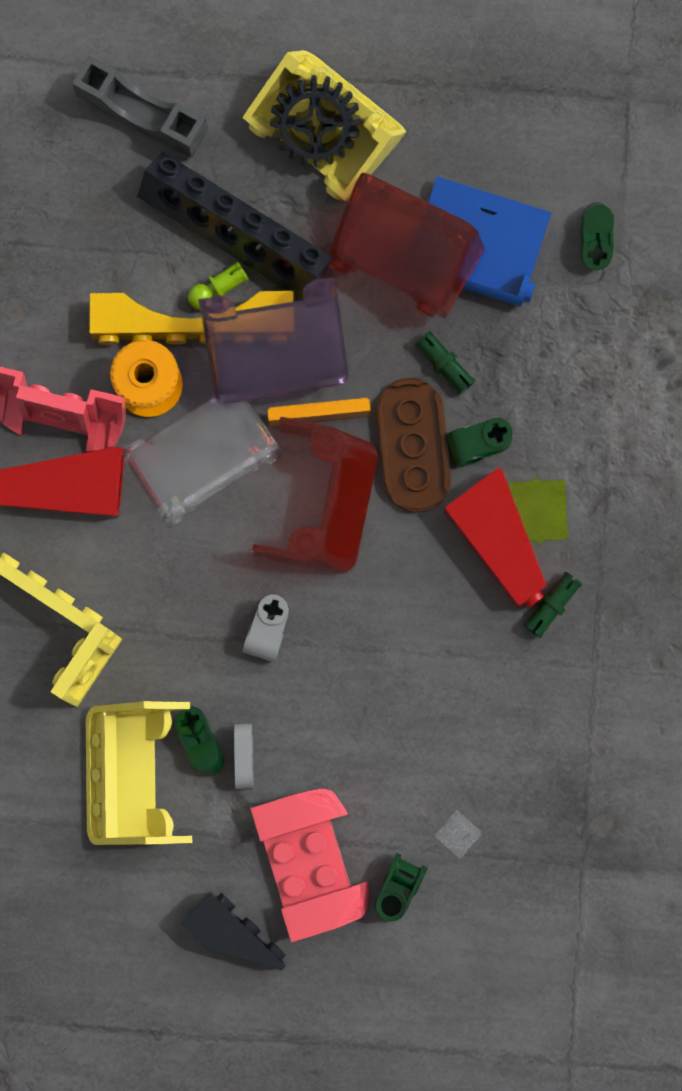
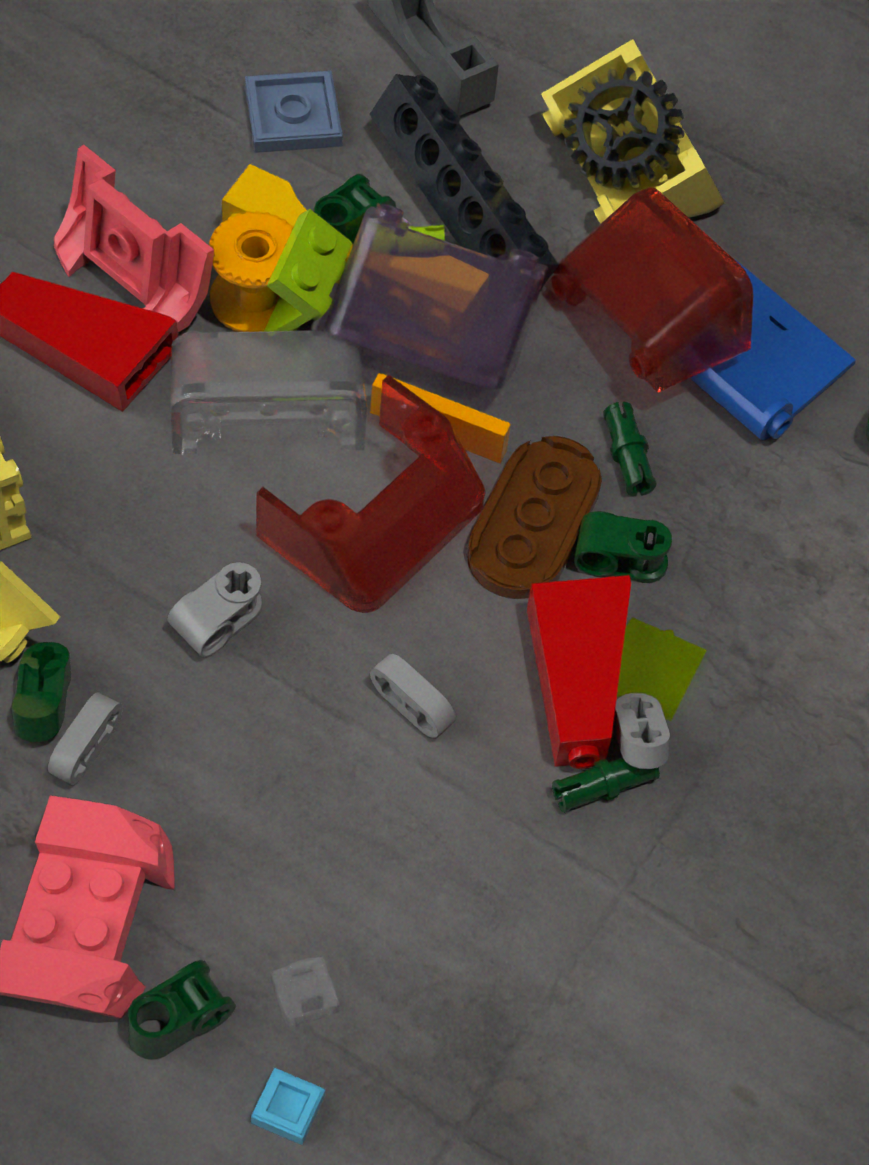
camera: 20 degrees right, 25 degrees down
(82, 218) = (293, 111): none -> sand blue tile
(174, 281) = (347, 205): none -> dark green piece
(186, 370) = (307, 272): none -> lime bracket
(413, 617) = (412, 695): none -> light grey beam
(487, 904) = (288, 1106): none -> medium azure tile
(563, 561) = (637, 721): none -> light grey beam

